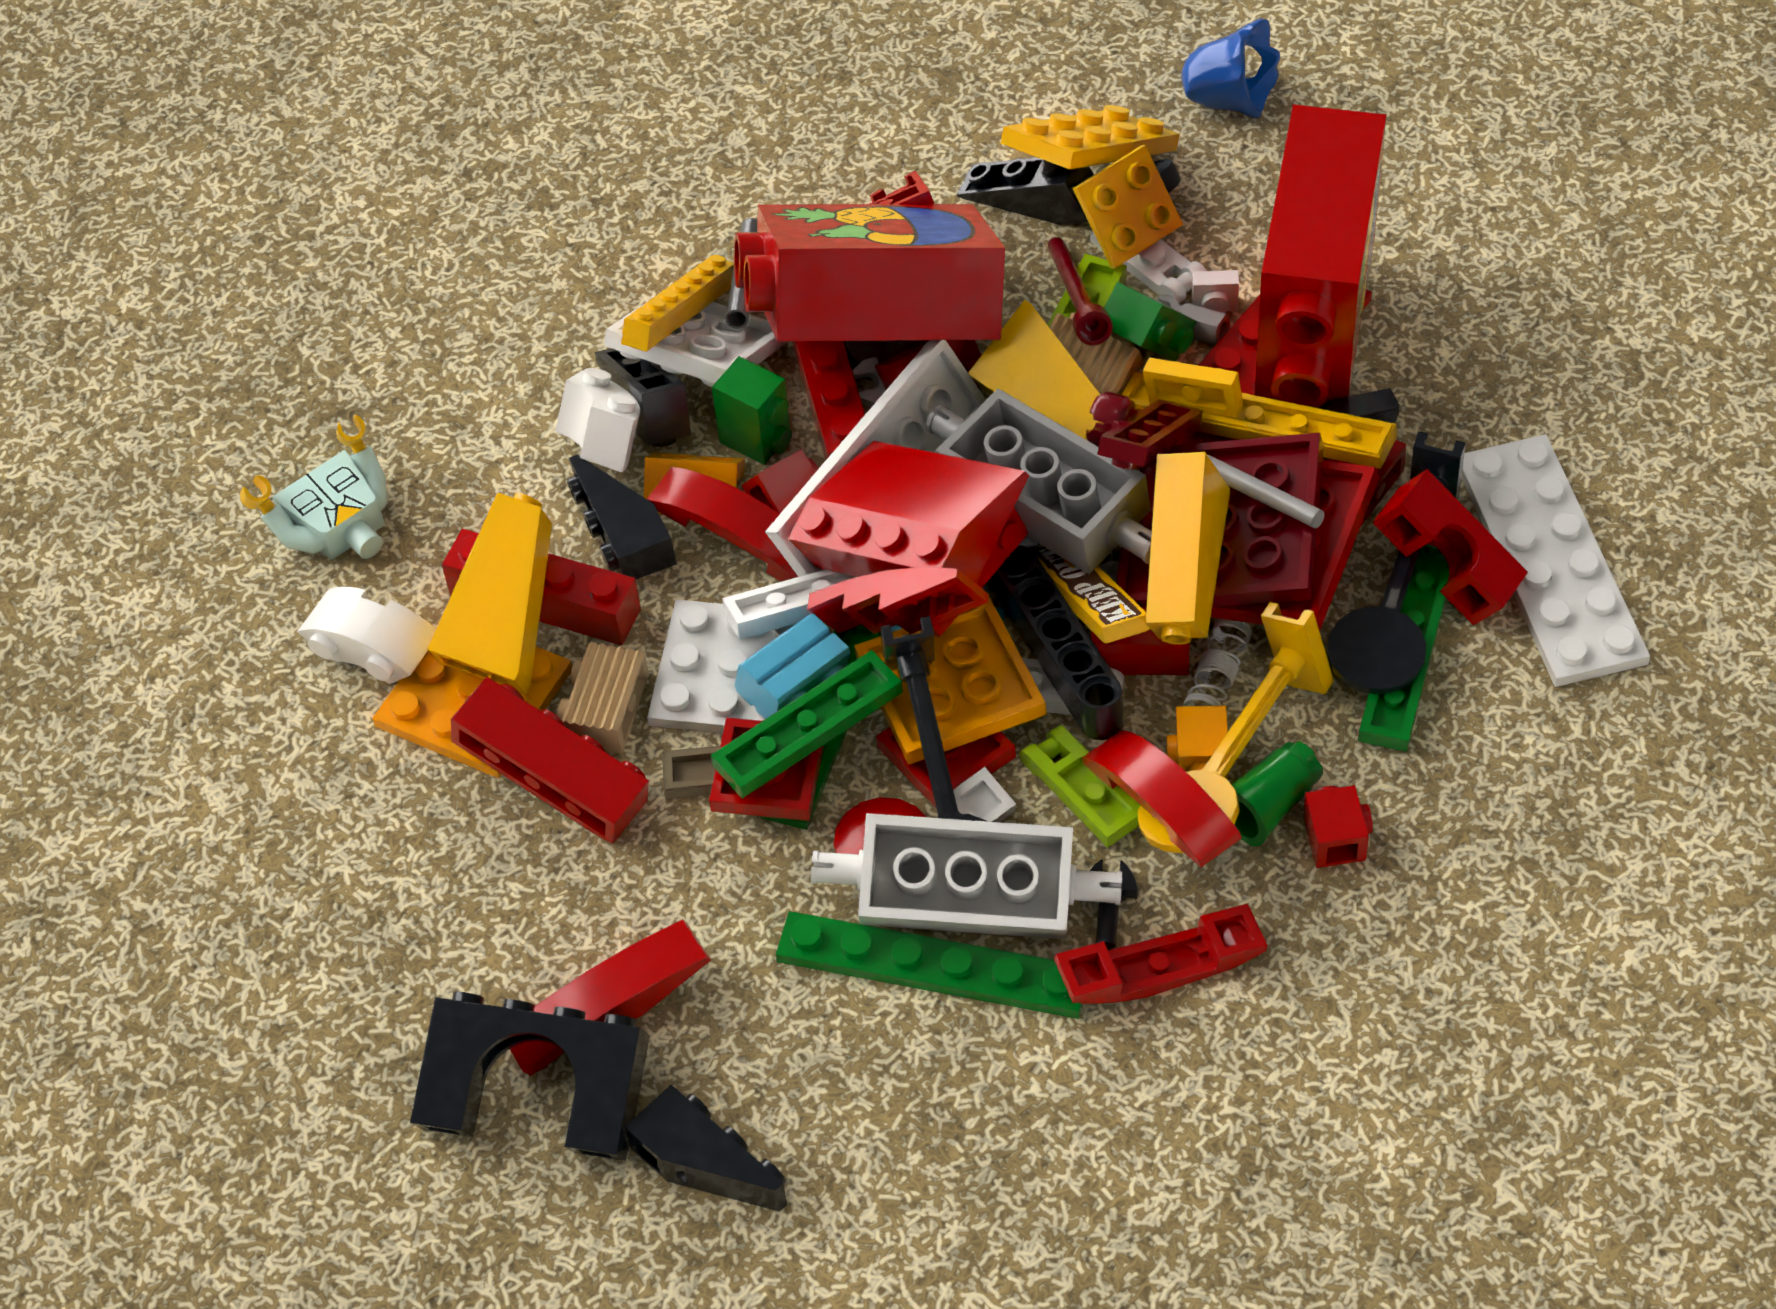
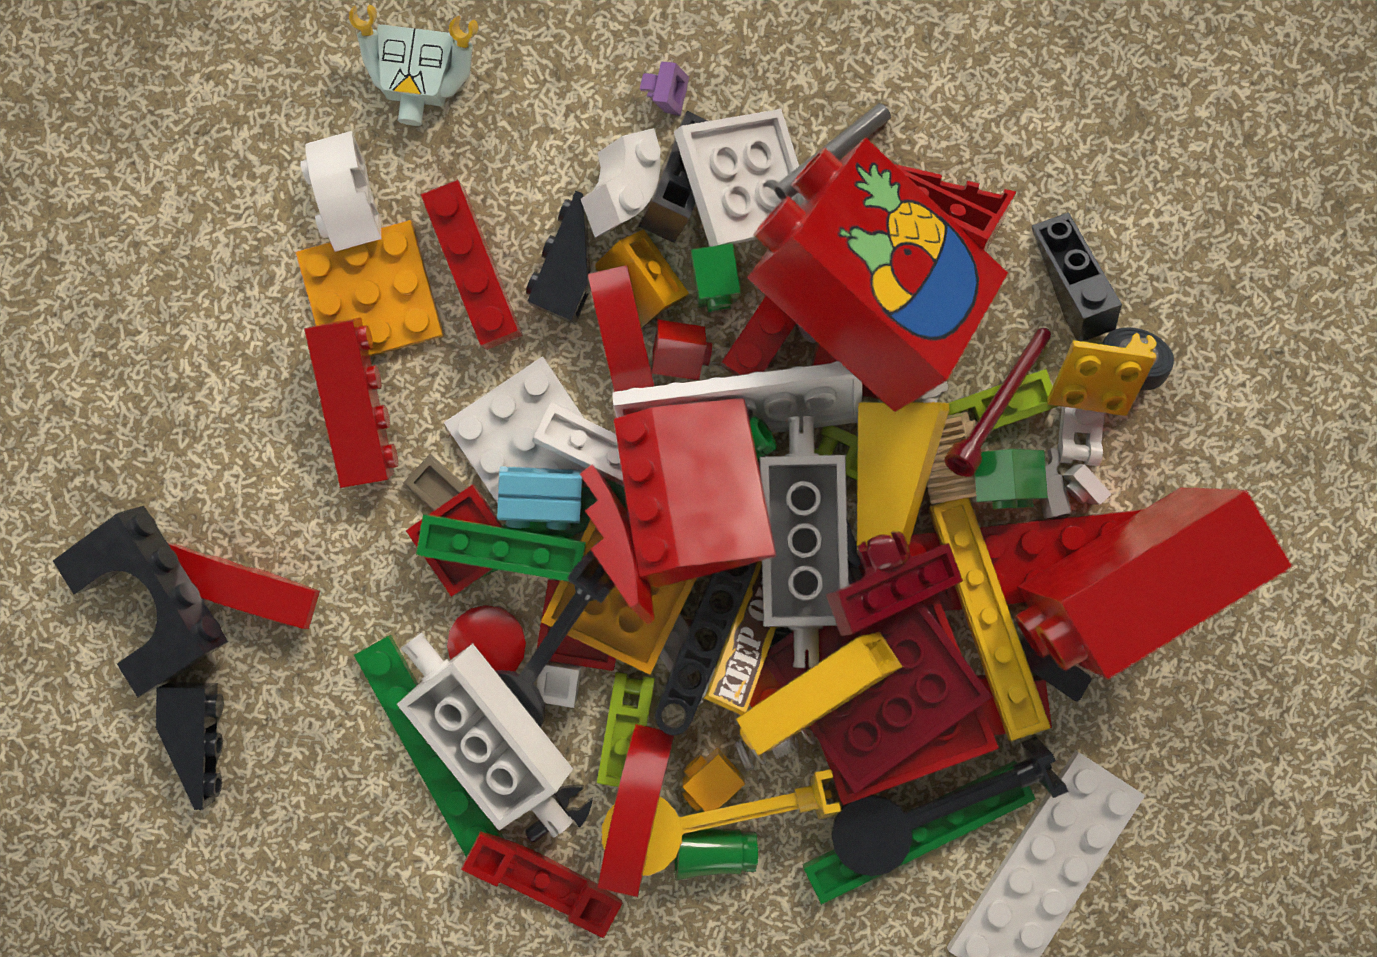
camera: 40 degrees right, 35 degrees up
(498, 597) = (416, 267): yellow slope -> none
(558, 350) = (667, 87): none -> medium lavender tile
(605, 694) = (431, 383): tan brick -> none
(677, 303) = (754, 144): yellow piece -> none
(1089, 137) = (1141, 296): yellow plate -> none
(1194, 386) = (967, 549): yellow plate -> none
(1216, 71) = (1294, 322): blue piece -> none
(1269, 495) = (910, 697): light grey bar -> none
(1337, 825) = (723, 909): red brick -> none
(1479, 567) = (988, 812): red arch -> none

